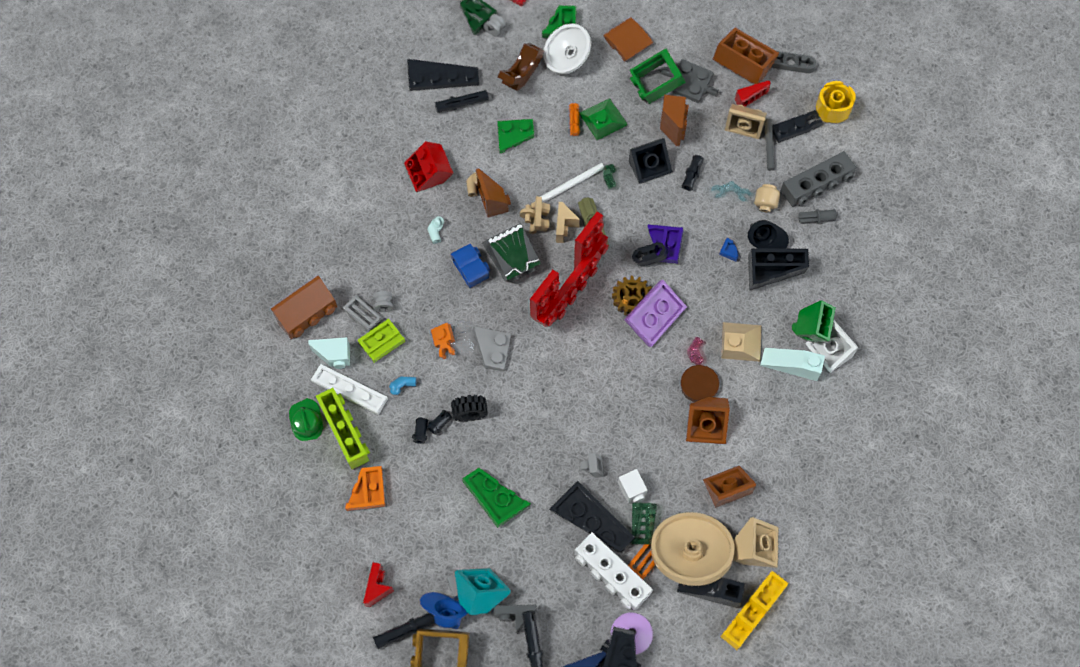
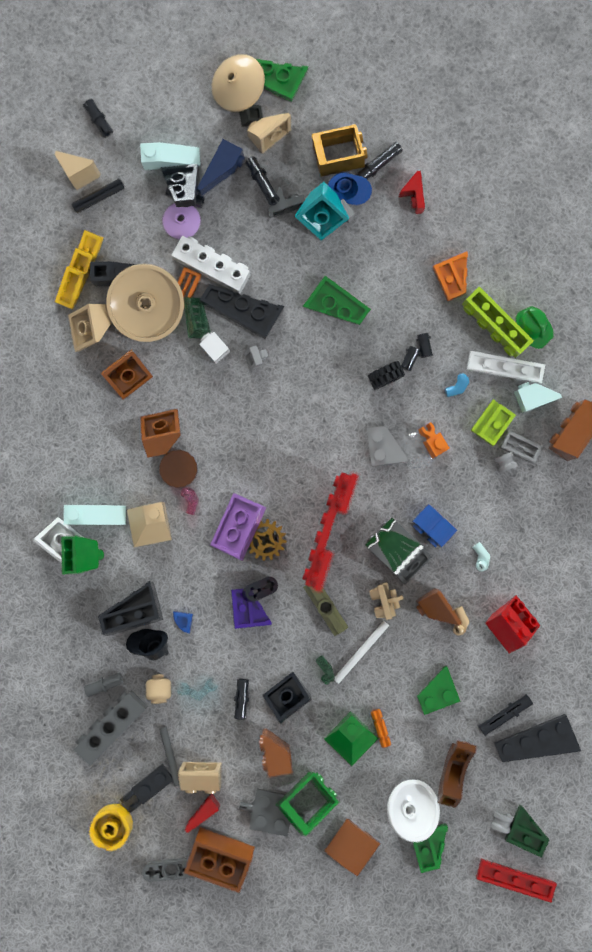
camera: 160 degrees right, 20 degrees up
(565, 219) = (357, 606): tan slope -> none

